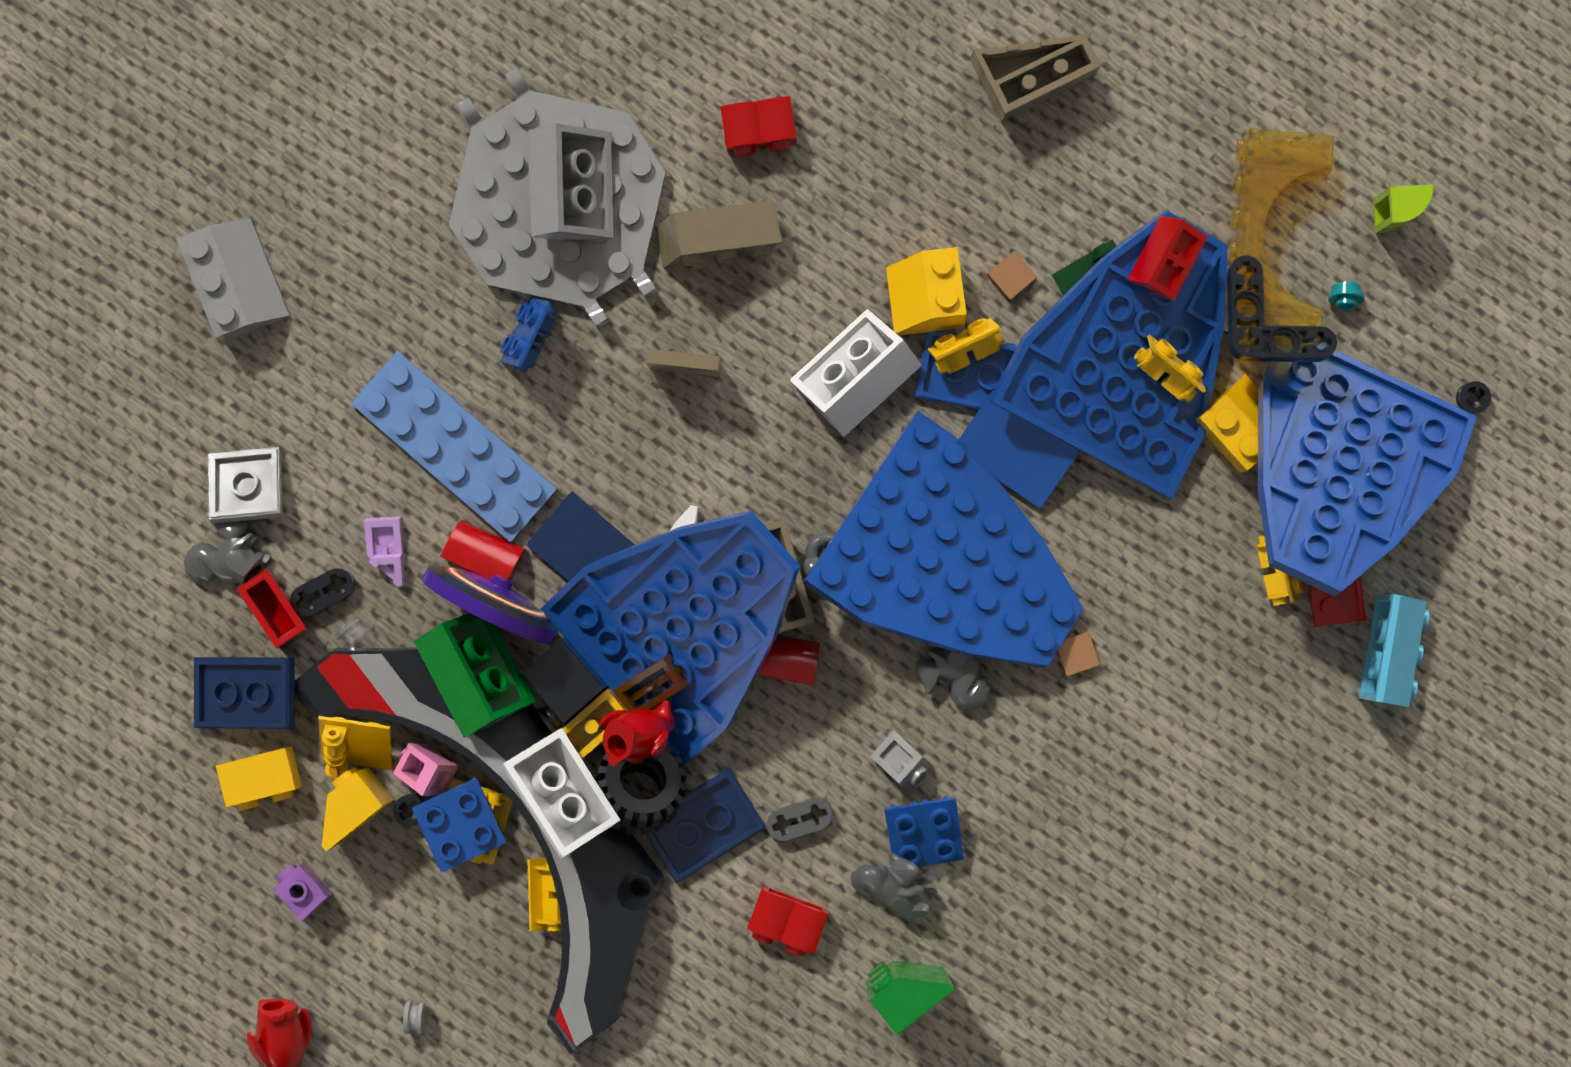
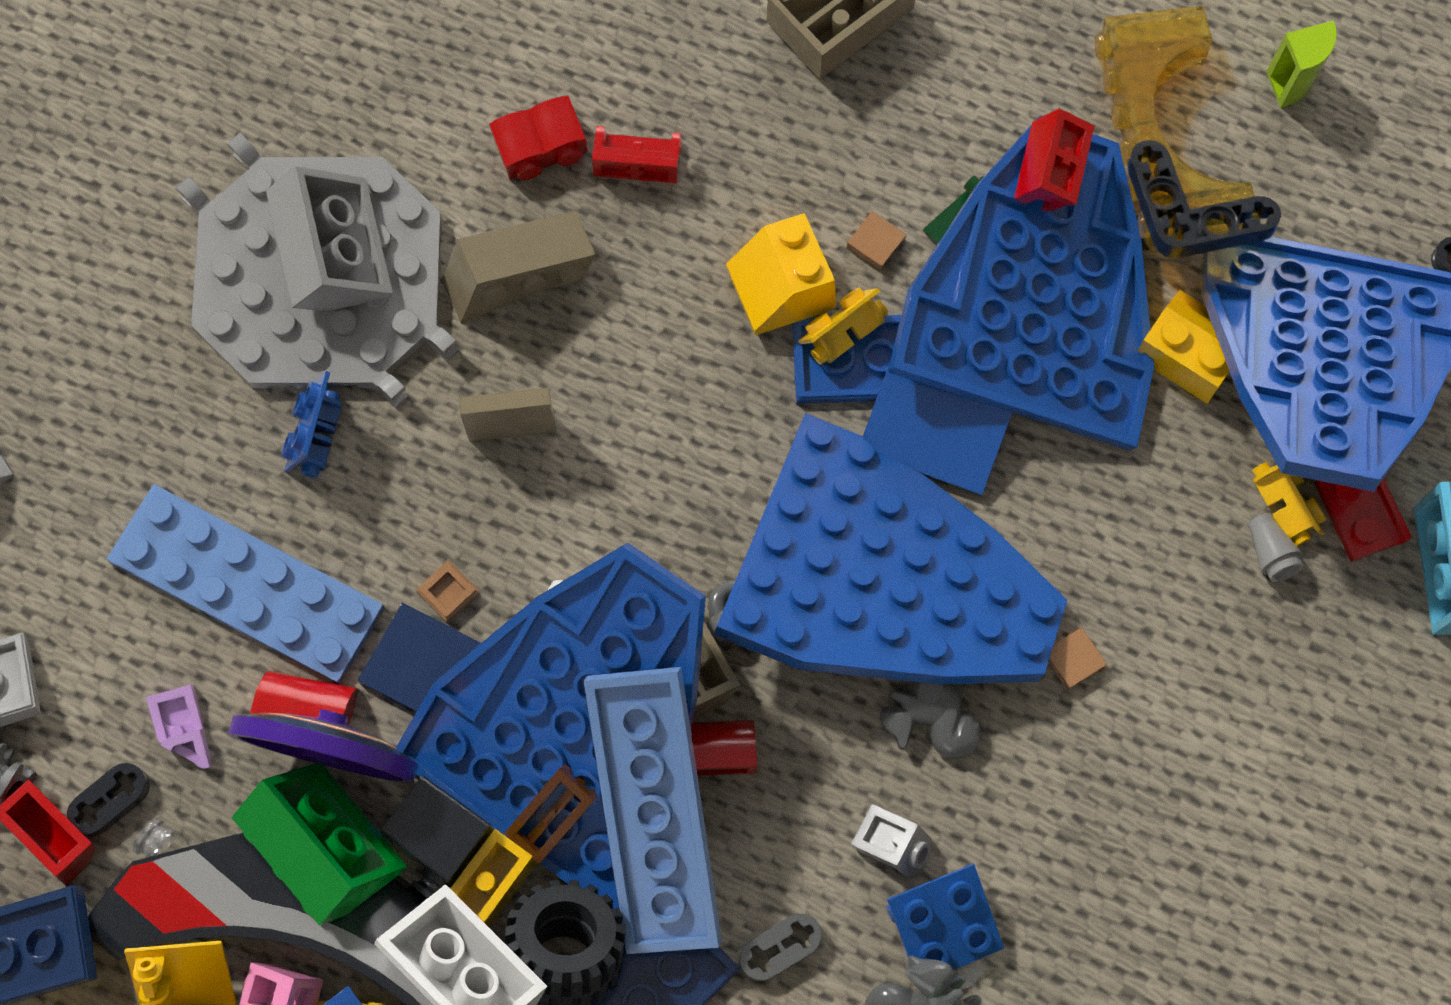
camera: 15 degrees left, 15 degrees down
(608, 489) = (447, 591): none -> medium nougat tile
(637, 733) = (545, 870): red animal -> none
(726, 707) = (653, 810): none -> medium blue plate
(835, 157) = (636, 157): none -> red hinge
(856, 372) = (720, 386): white slope -> none
(1182, 376) = (1109, 297): yellow hinge -> none
(1255, 604) = (1275, 550): none -> light grey cone
(1346, 295) = (1270, 176): teal plate -> none

